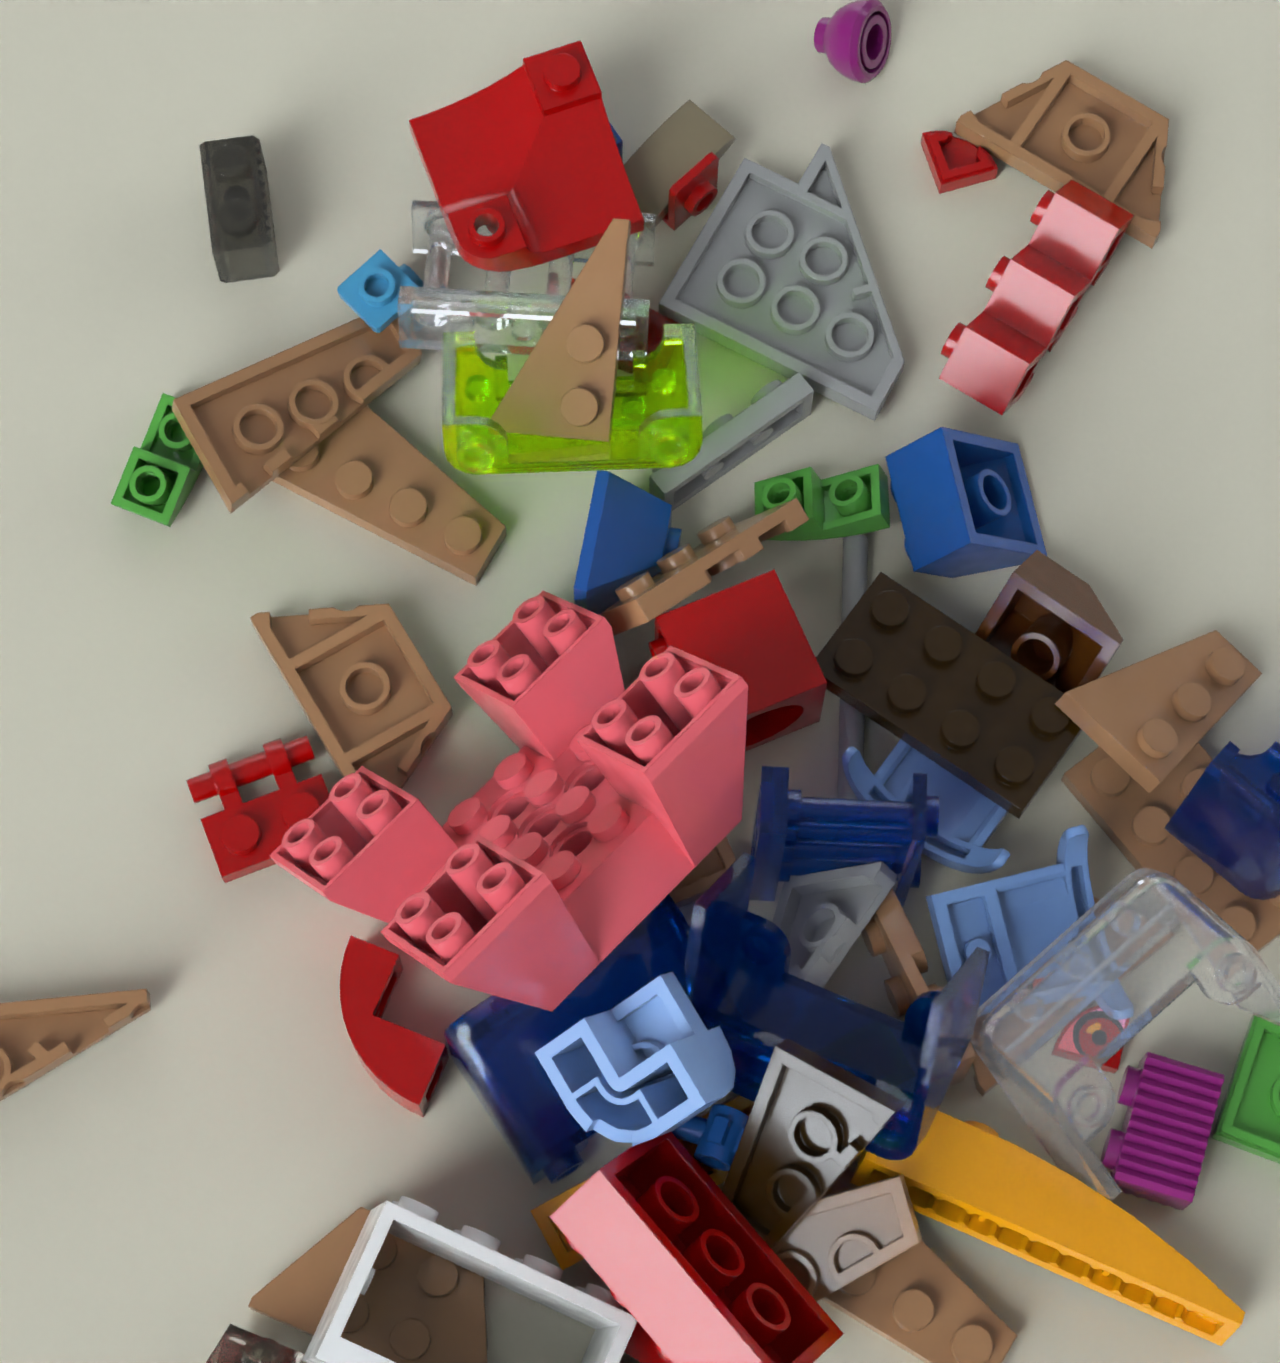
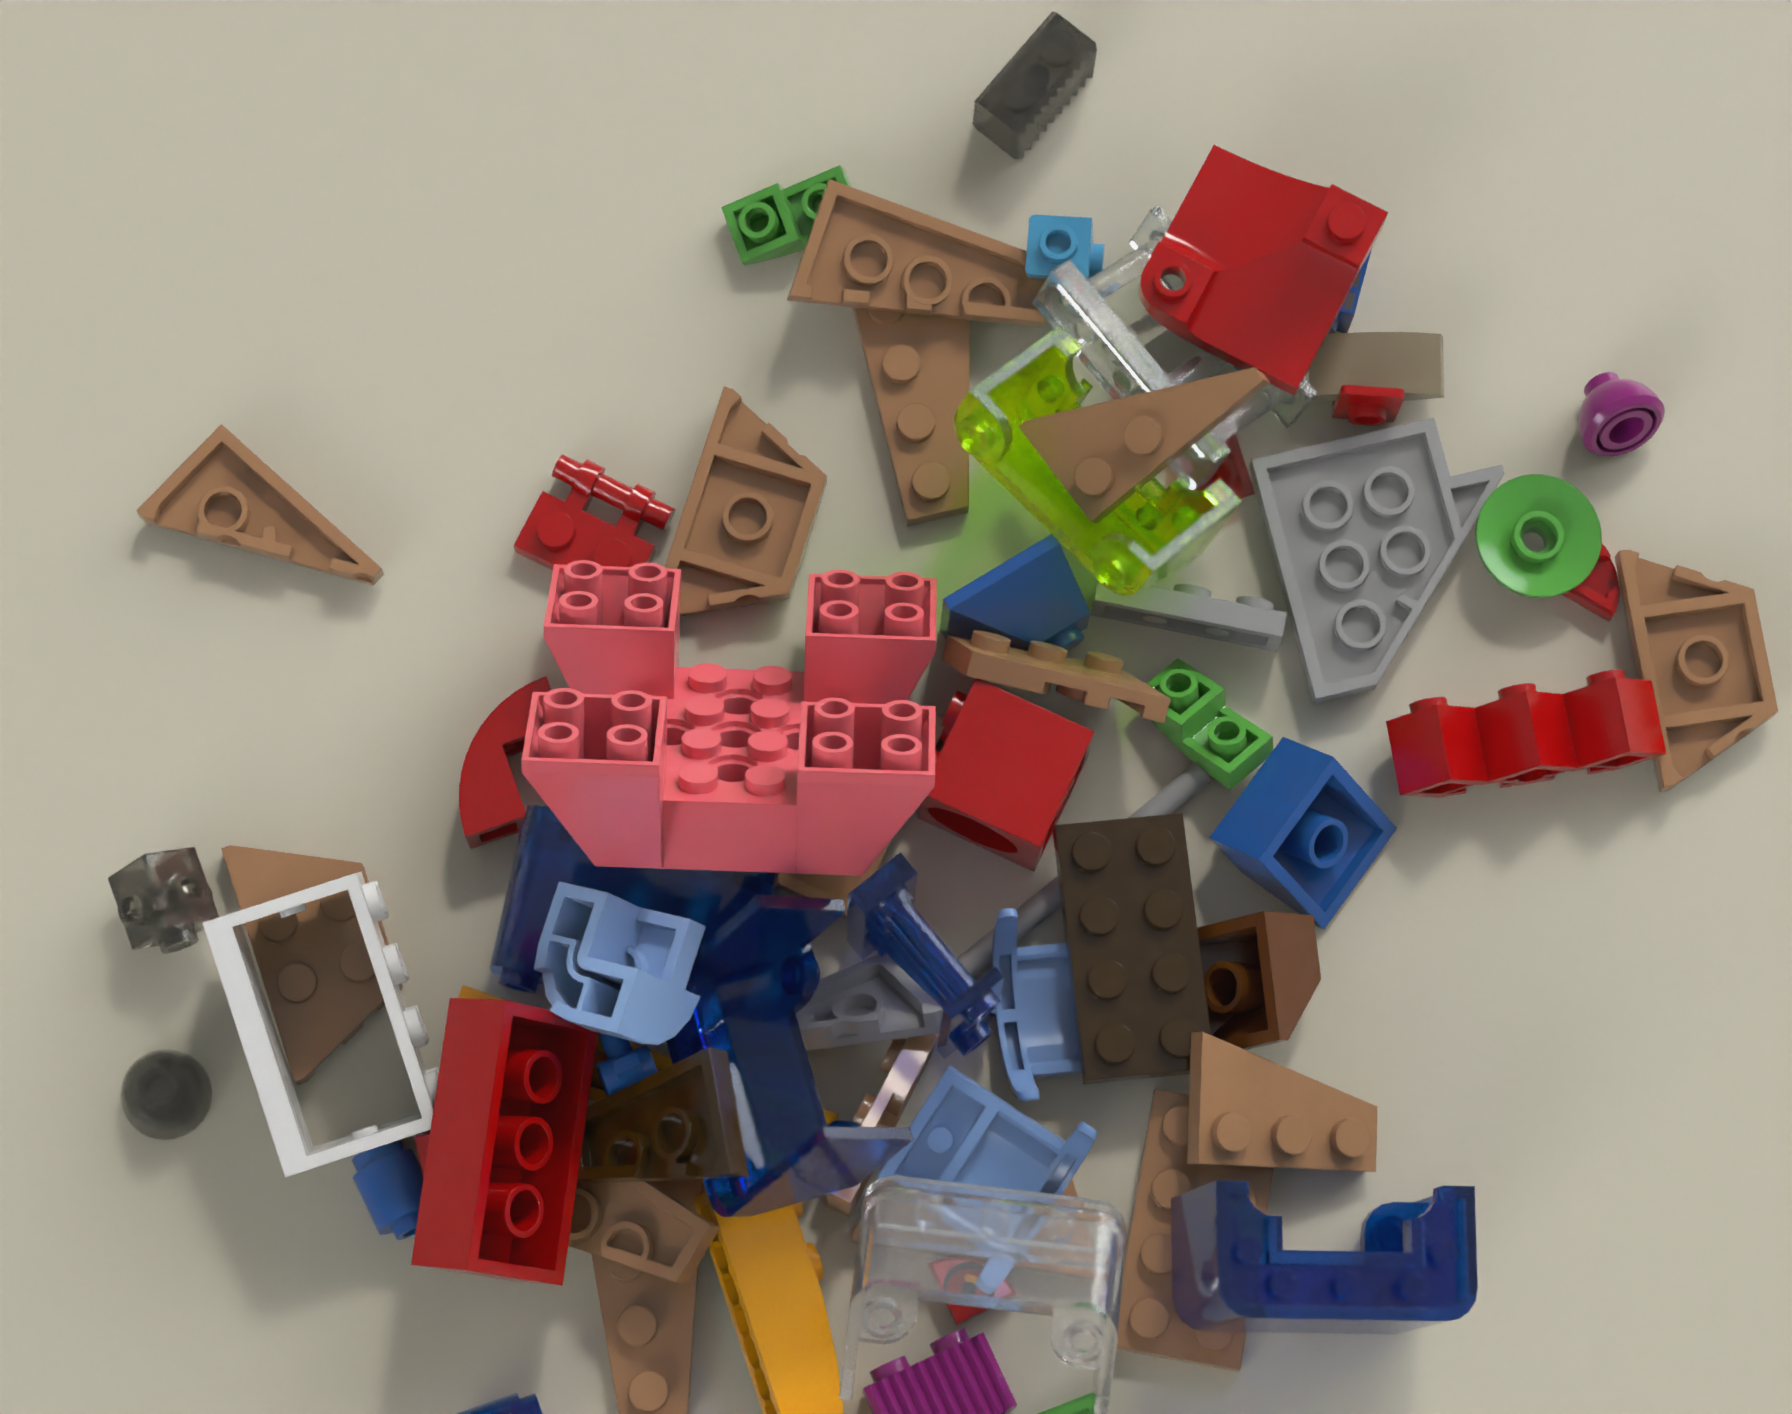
camera: 45 degrees right, 5 degrees up
(900, 142) = (1558, 516): none -> bright green dish

